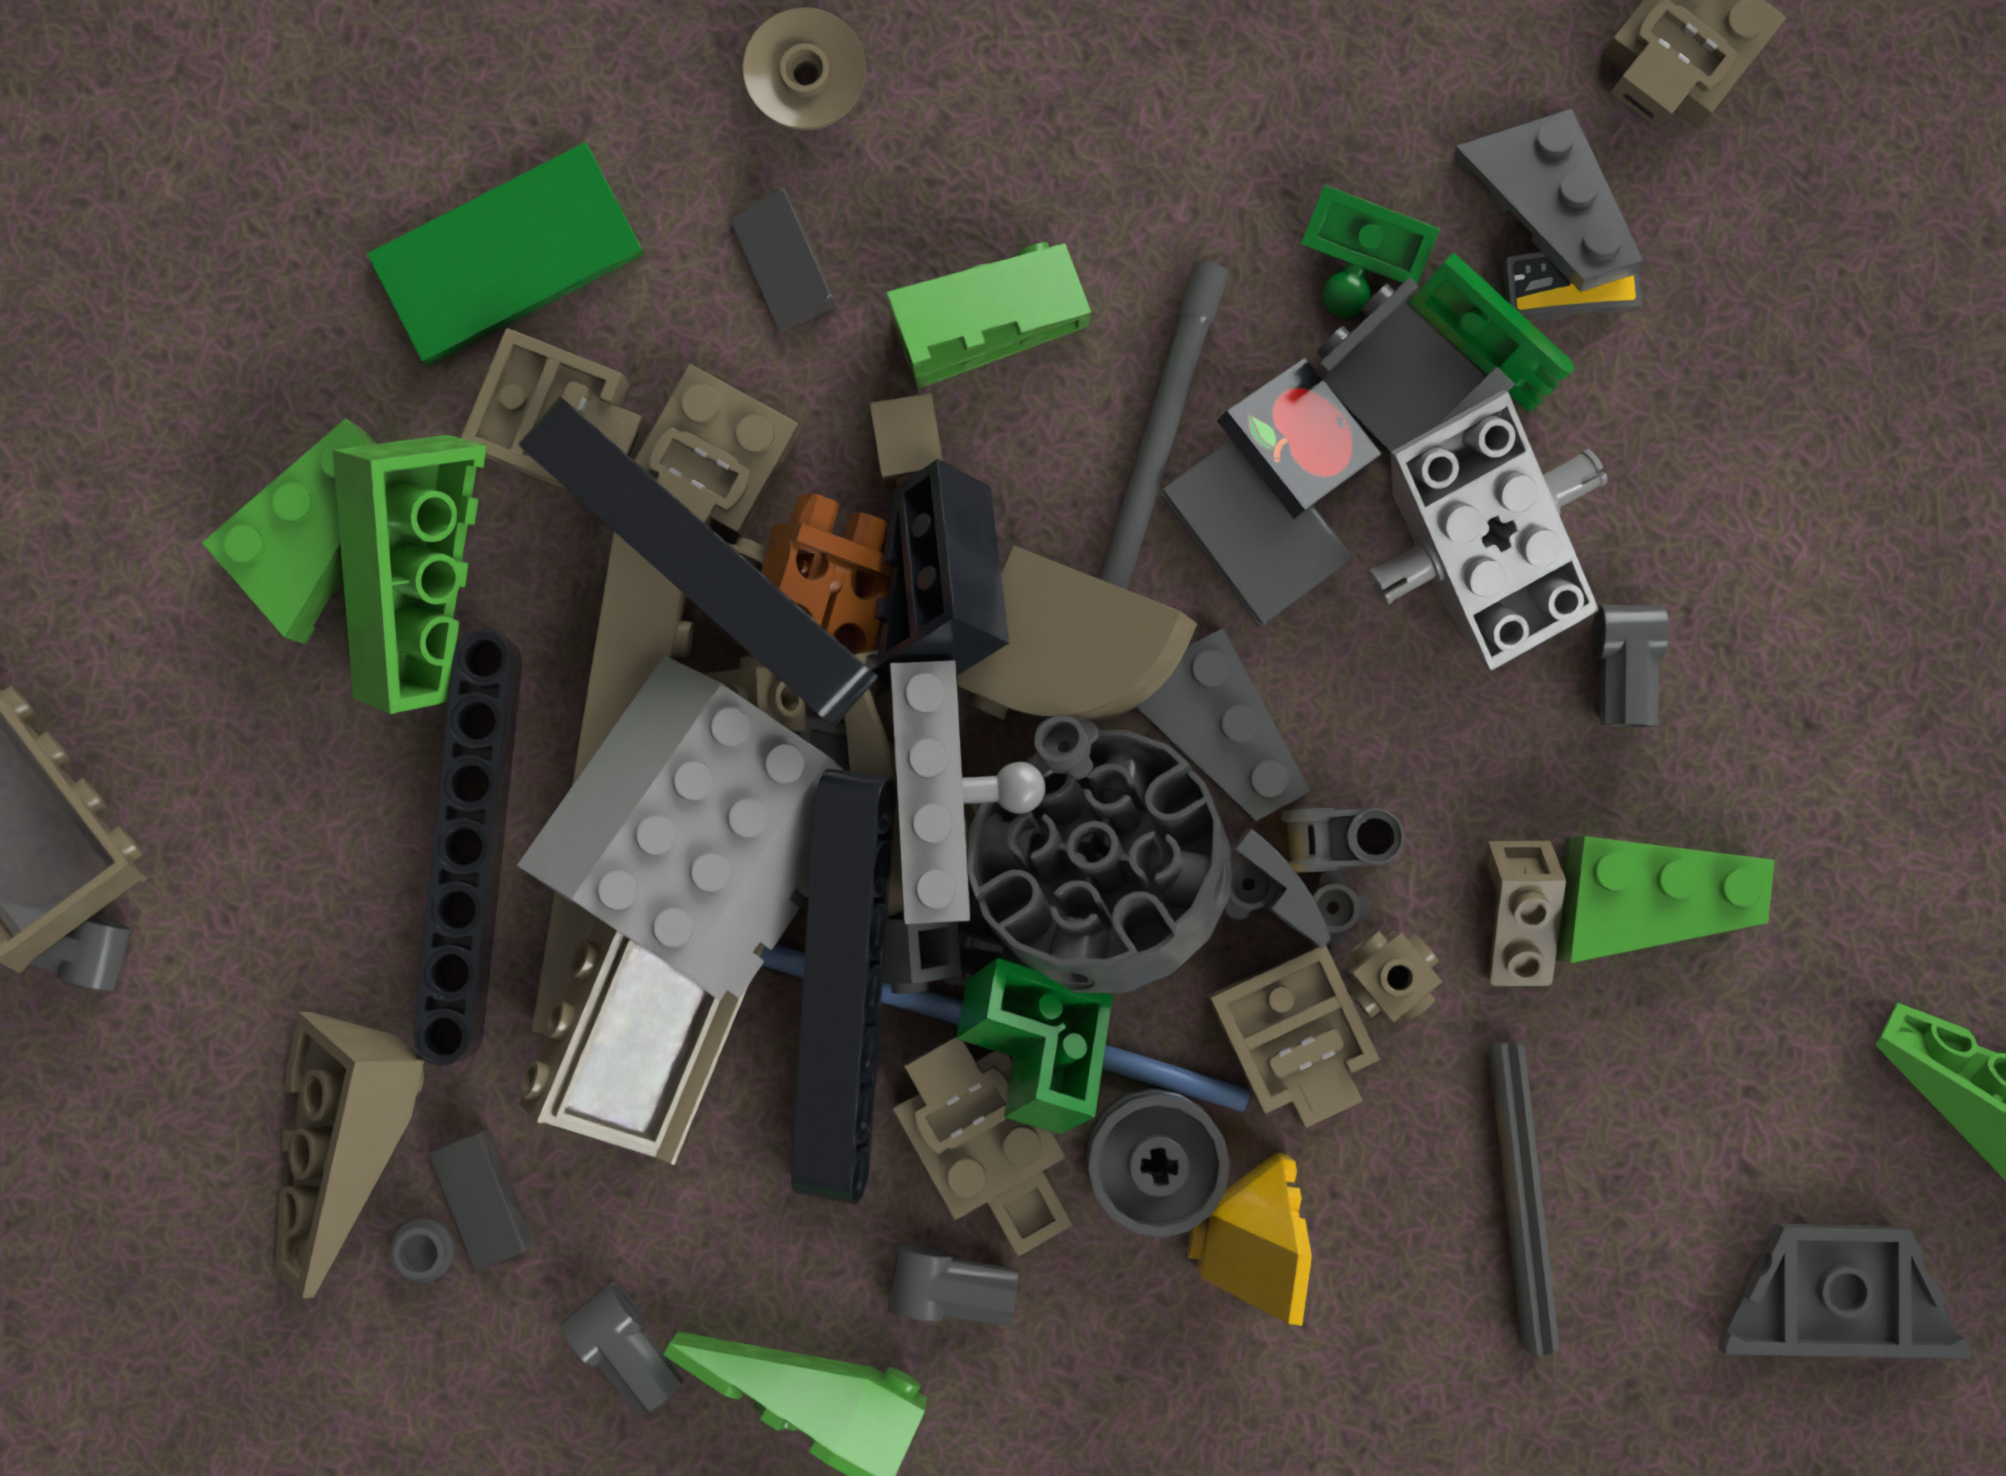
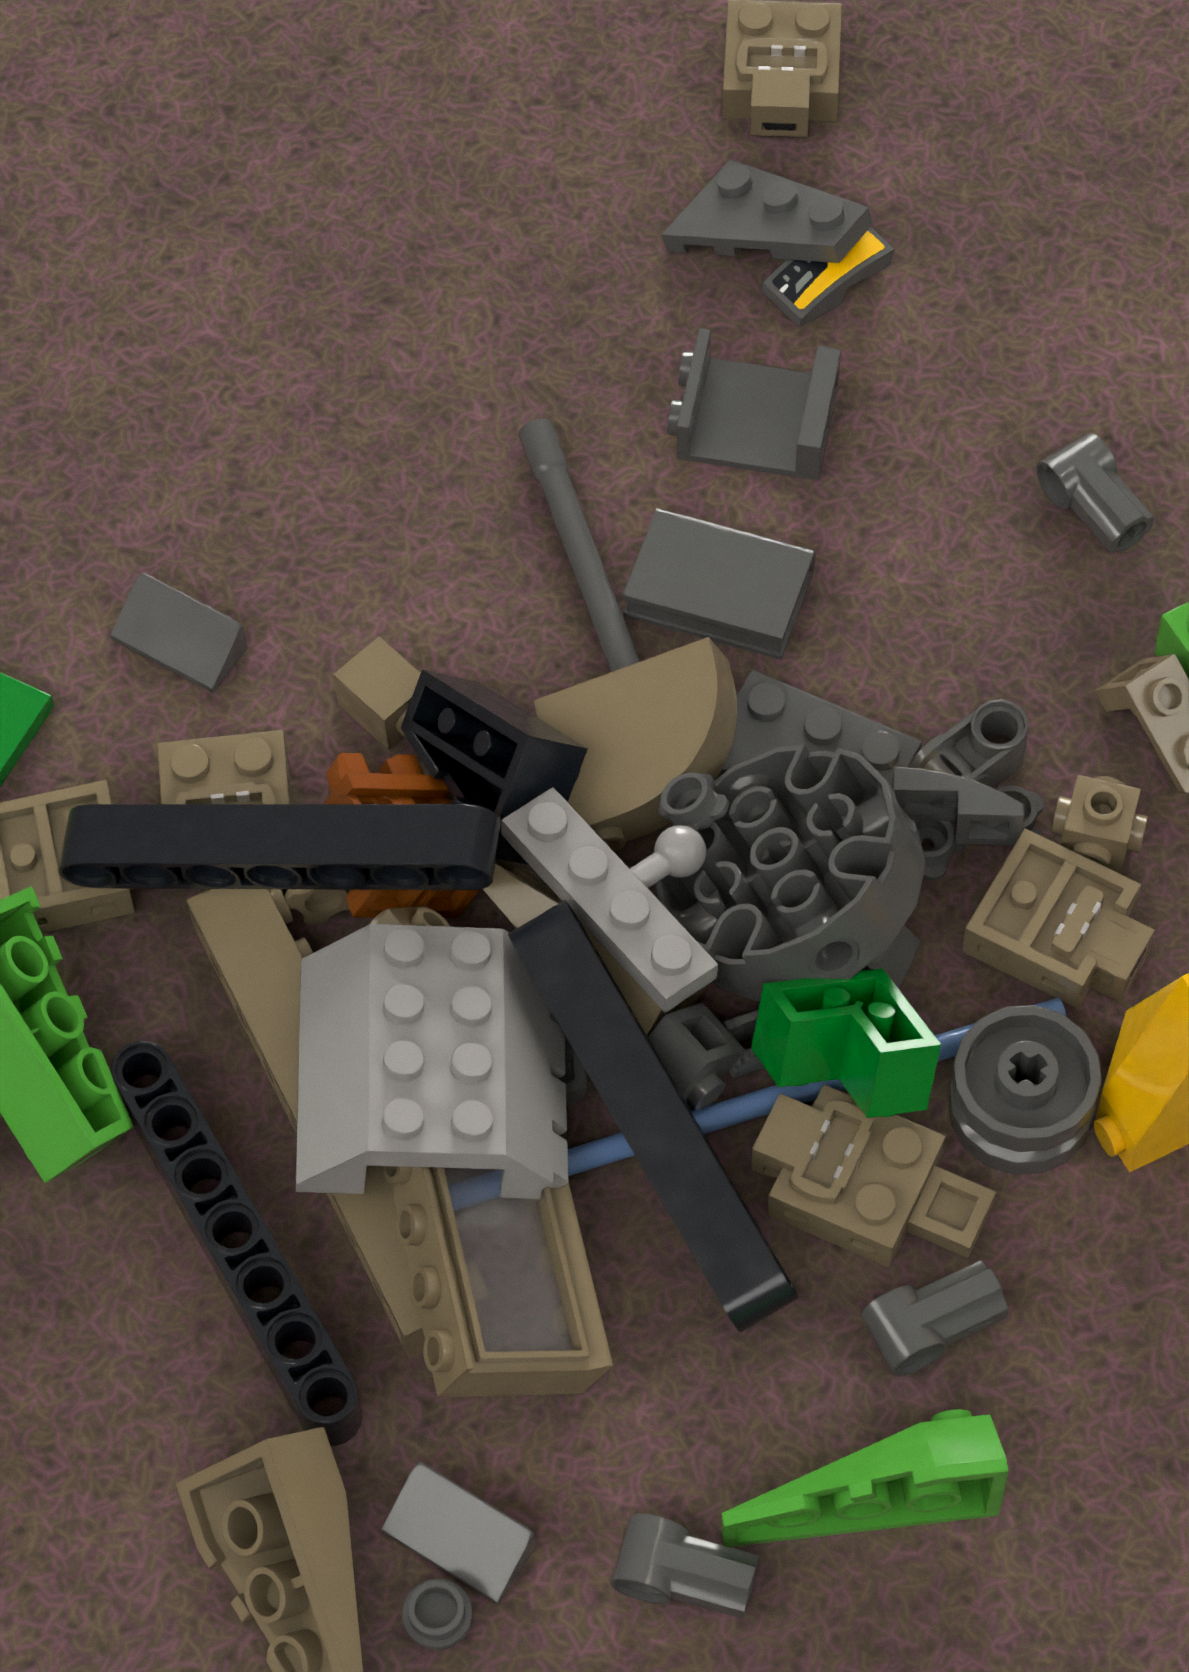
camera: 30 degrees left, 25 degrees down
(797, 41) = (89, 467): dark tan dish -> none
(987, 312) = (377, 562): bright green wedge -> none
(1298, 437) = (702, 494): tile -> none
(1367, 240) = (645, 334): green plate -> none
(1490, 531) = (904, 456): light grey slope -> none
(1491, 331) = (790, 335): green hinge -> none

